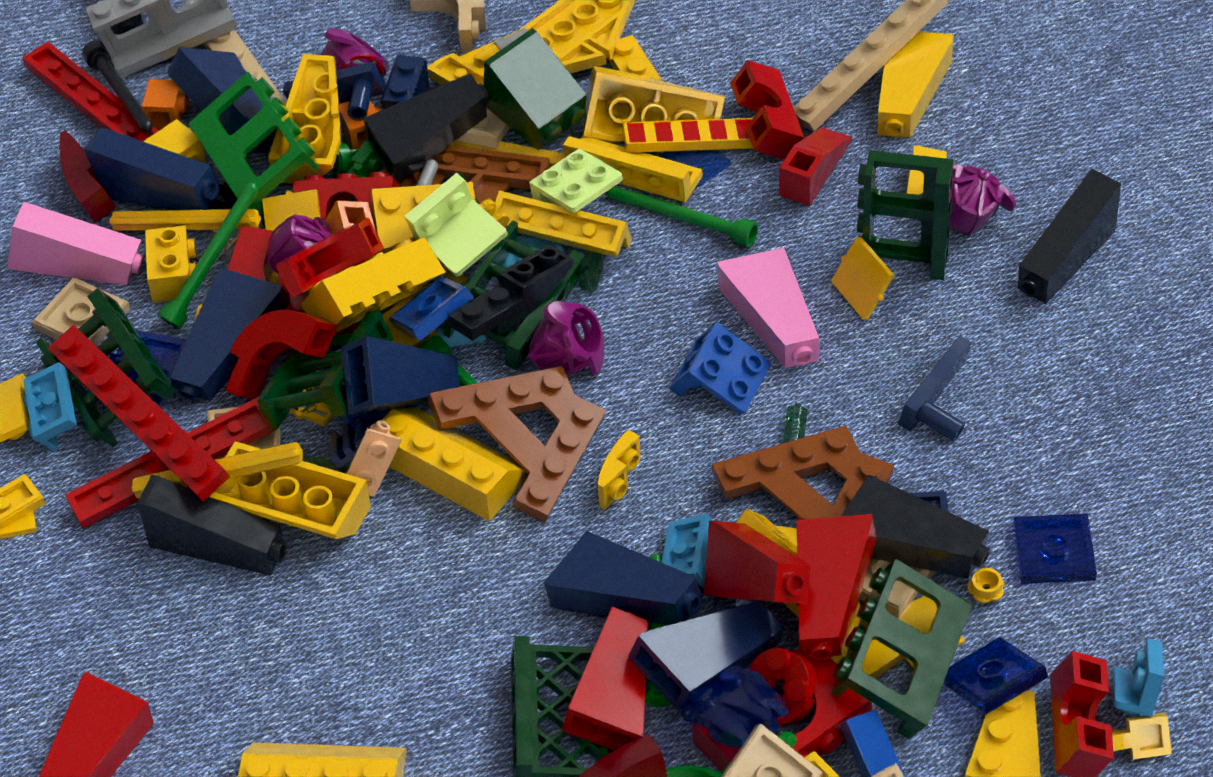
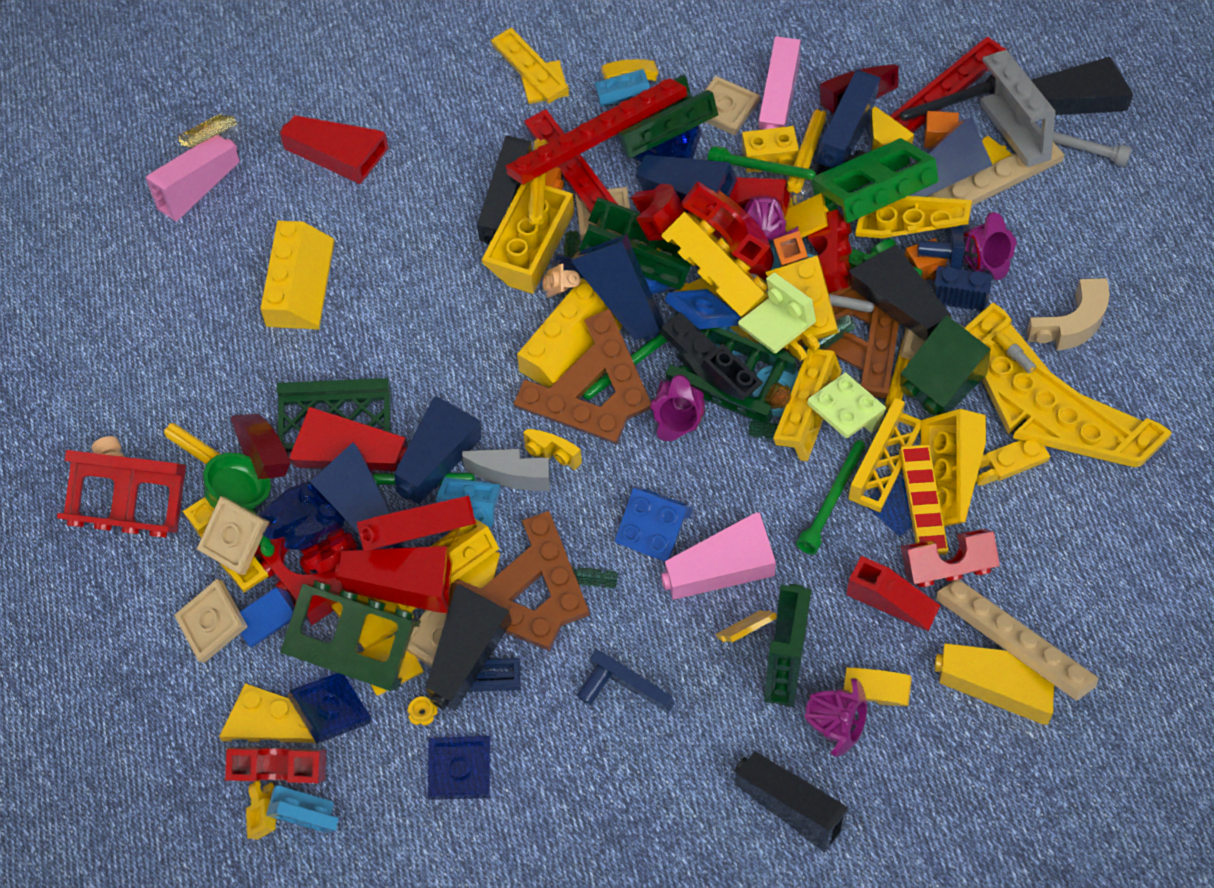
camera: 90 degrees right, 10 degrees up
(561, 236) = (778, 396): none -> clear orange plate
(649, 506) = (508, 469): none -> light grey slope

